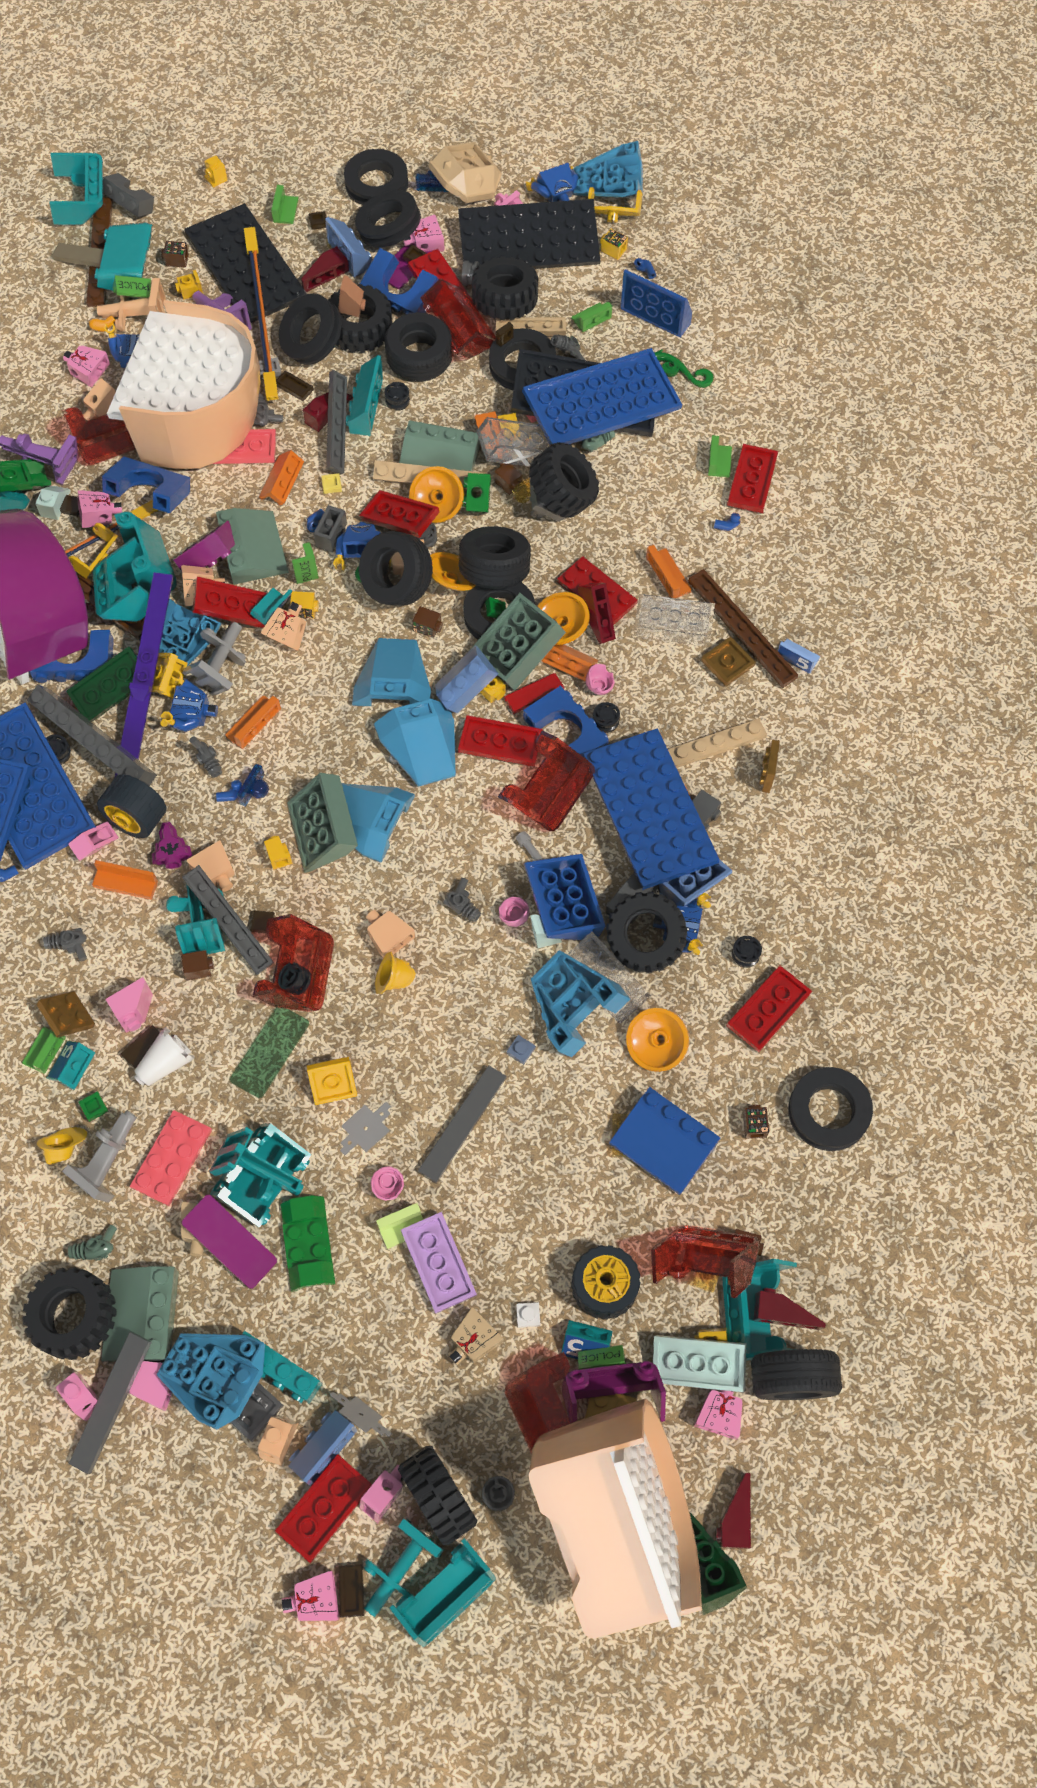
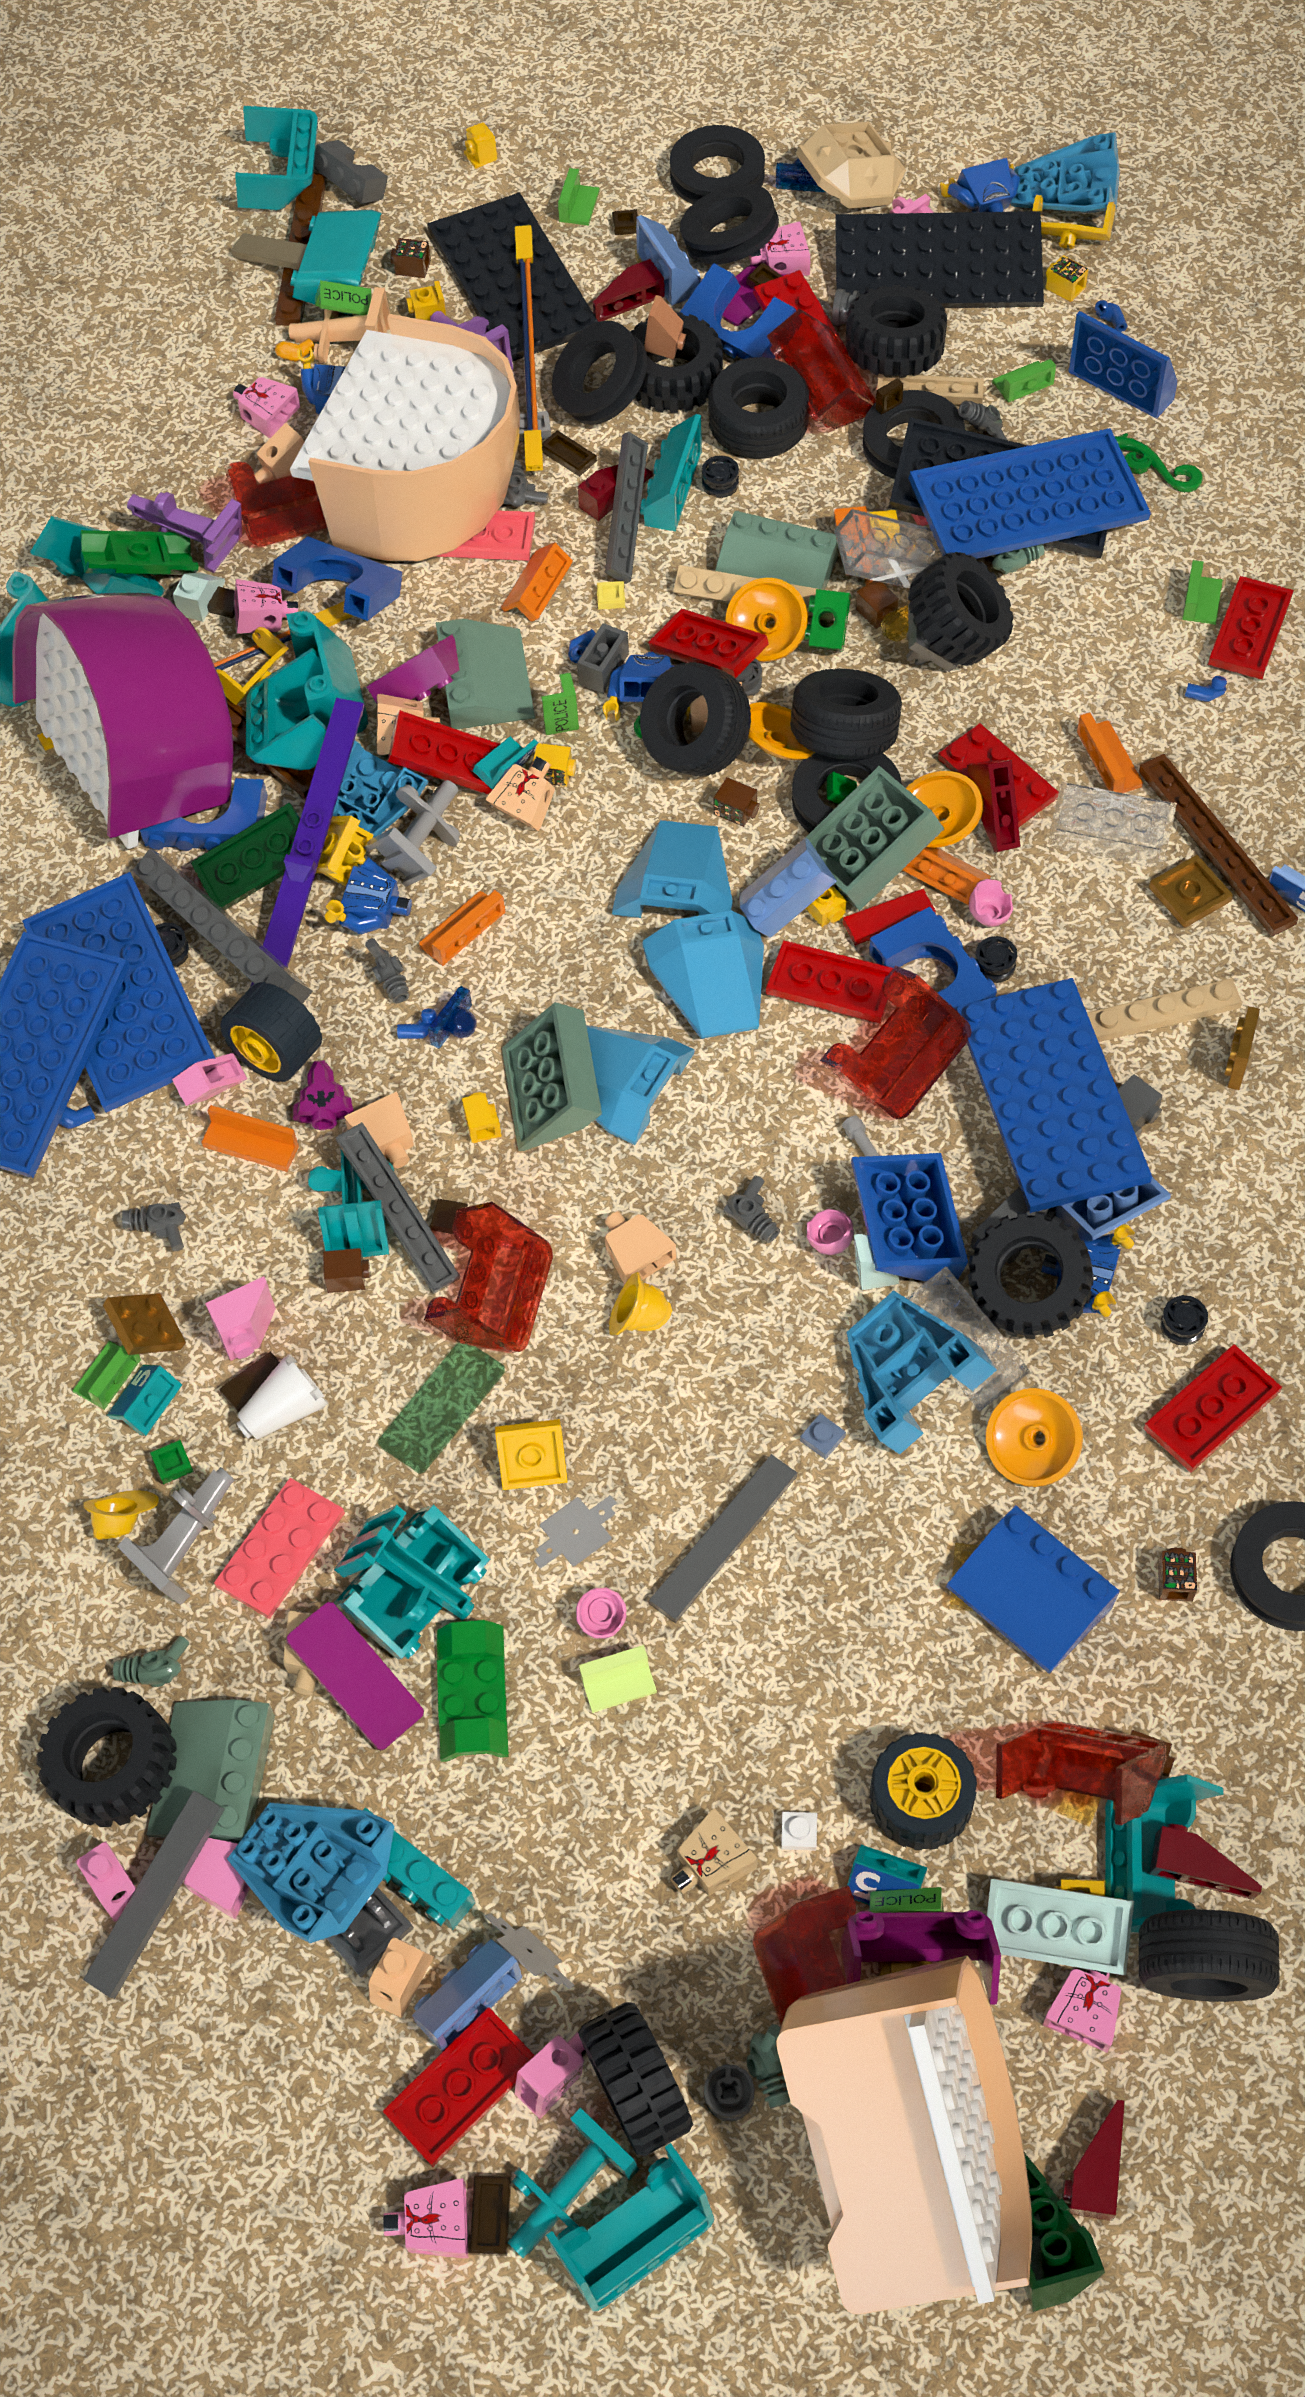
camera: 10 degrees right, 5 degrees down
(293, 978) = (489, 1300): black wheel -> none
(438, 1262) = (668, 1738): lavender plate -> none
(519, 1472) = (766, 2065): none -> sand green piece

